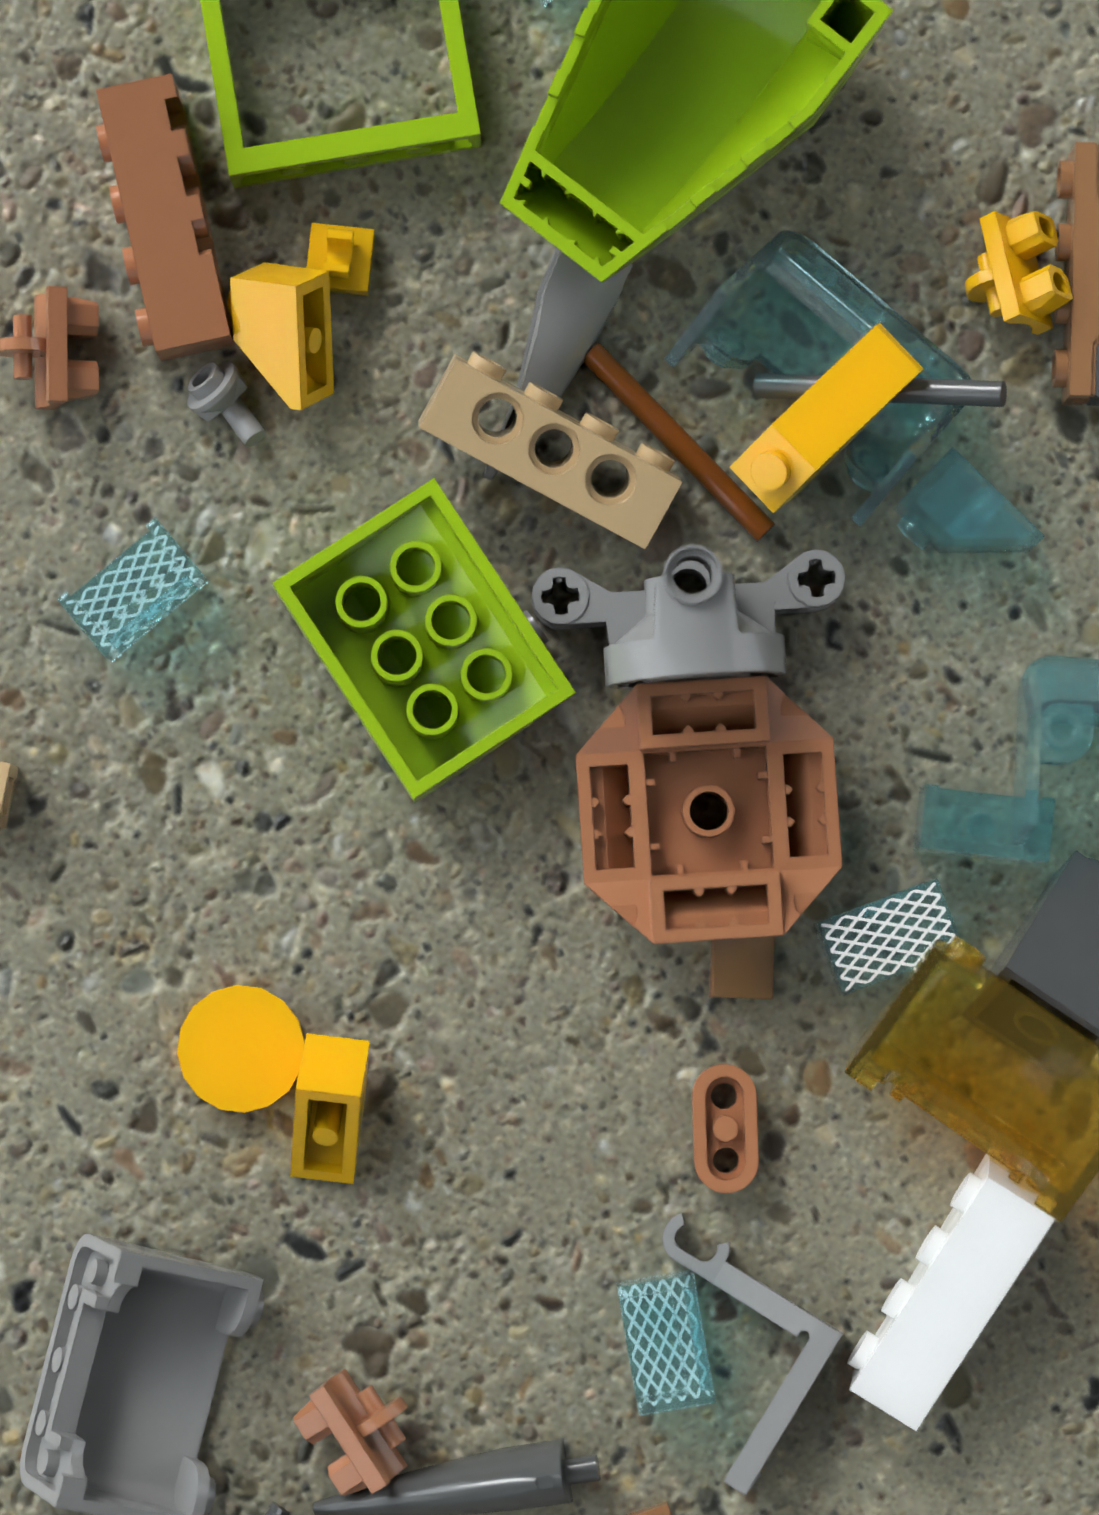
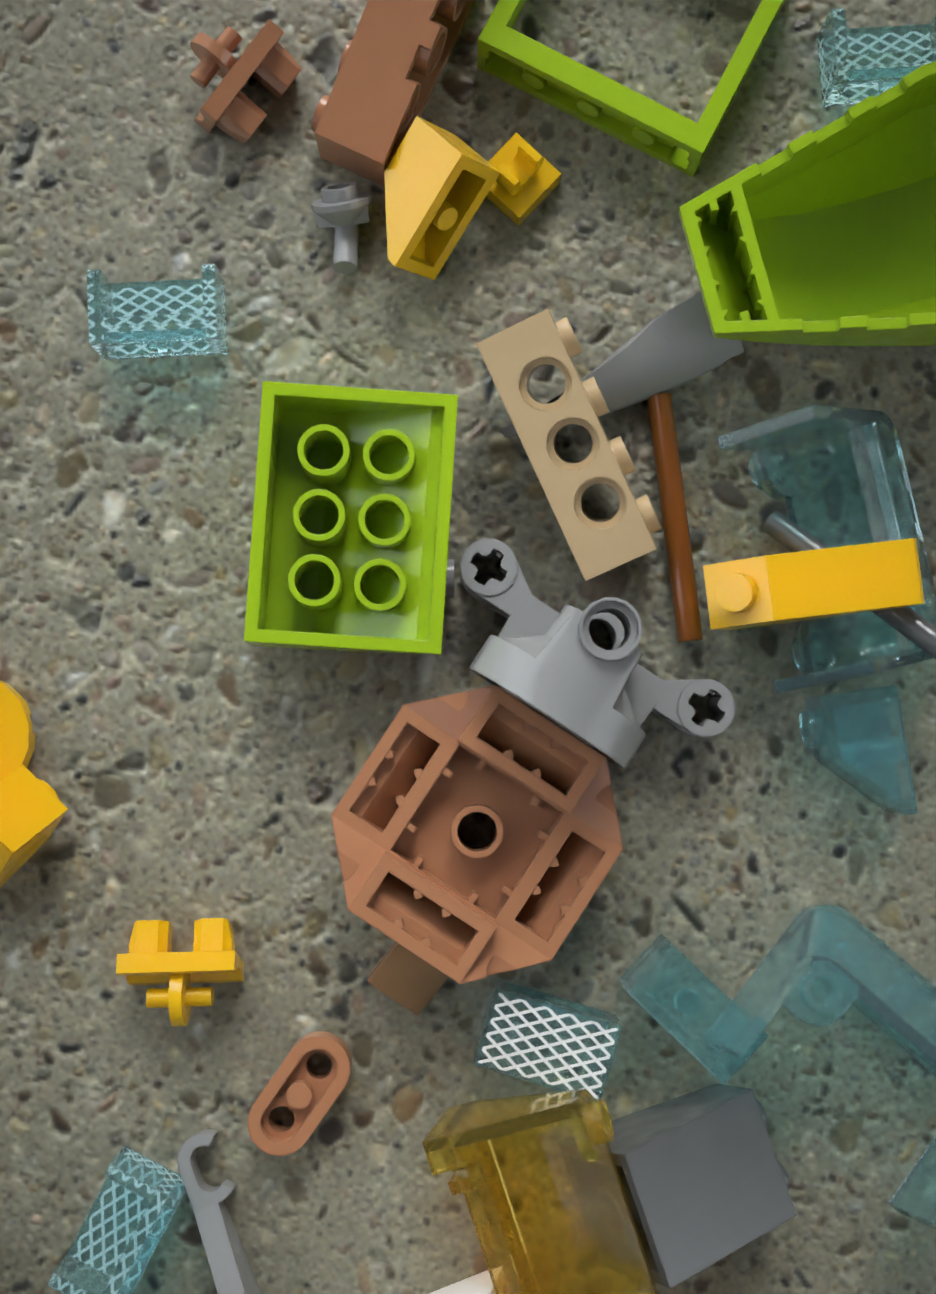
camera: 30 degrees right, 0 degrees up
(560, 1104) = (154, 963): none -> yellow hips

